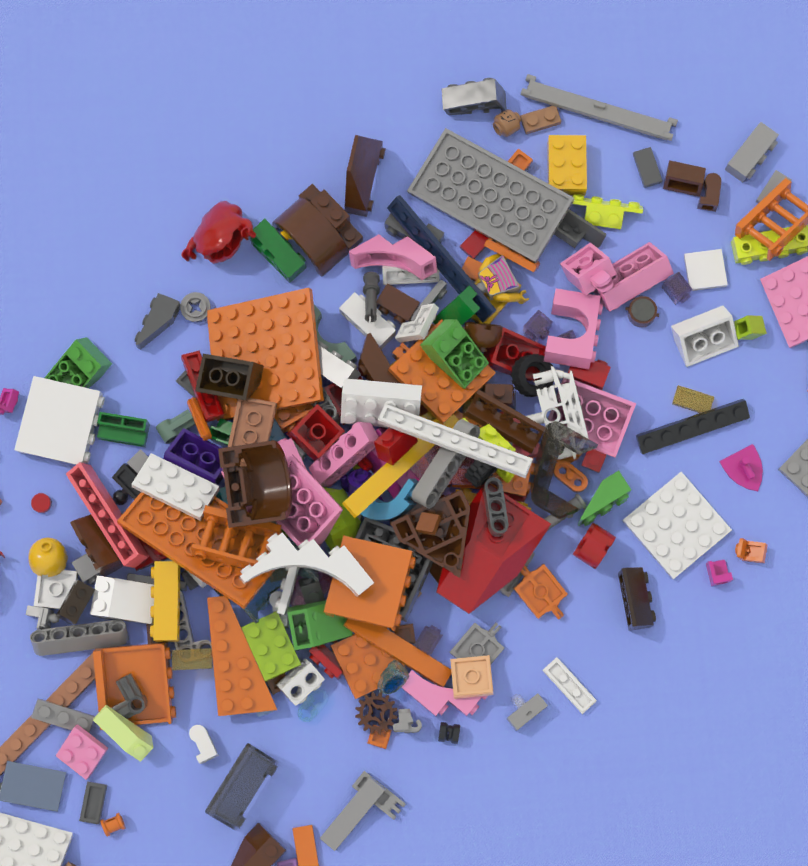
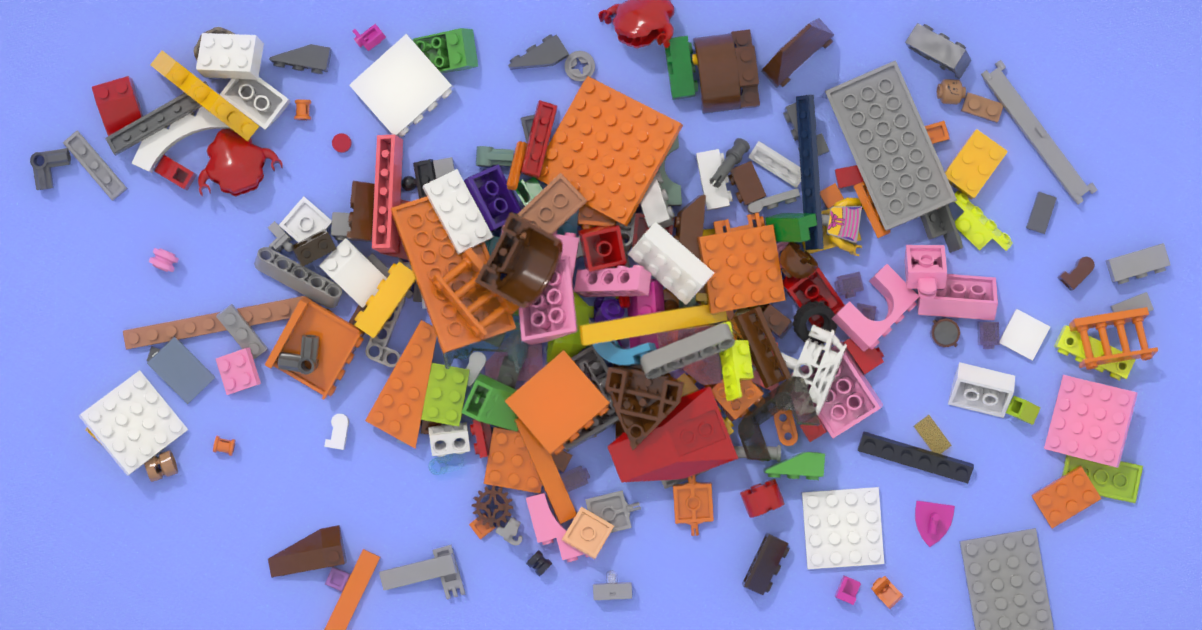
camera: 35 degrees right, 10 degrees up
(47, 557) = (316, 193): yellow cylinder -> none
(93, 803) = (220, 417): dark grey tile -> none
(123, 429) = (449, 129): green piece -> none
(125, 733) = (282, 382): yellowish green slope -> none
(192, 659) = (375, 360): clear yellow tile -> none
(228, 377) = (563, 150): dark brown slope -> none
(241, 786) = (345, 490): clear smoke windscreen -> none
(283, 554) = (503, 335): white arch -> none
(287, 586) = (491, 356): white plate -> none
(392, 678) = (524, 489): clear light blue rock -> none
(393, 445) = (659, 304): red brick -> none
(403, 254) = (780, 145): bright pink arch -> none
(420, 327) = (747, 218): white plate -> none
(428, 523) = (638, 389): dark orange tile -> none
(454, 352) = (762, 262): bright green slope -> none
(455, 440) = (706, 340): white tile -> none
(479, 473) = (713, 377): black tyre -> none
(495, 516) = (693, 420): dark grey beam -> none
(569, 685) = (662, 593): white tile -> none
(684, 178) = (1065, 244): reddish brown brick -> none

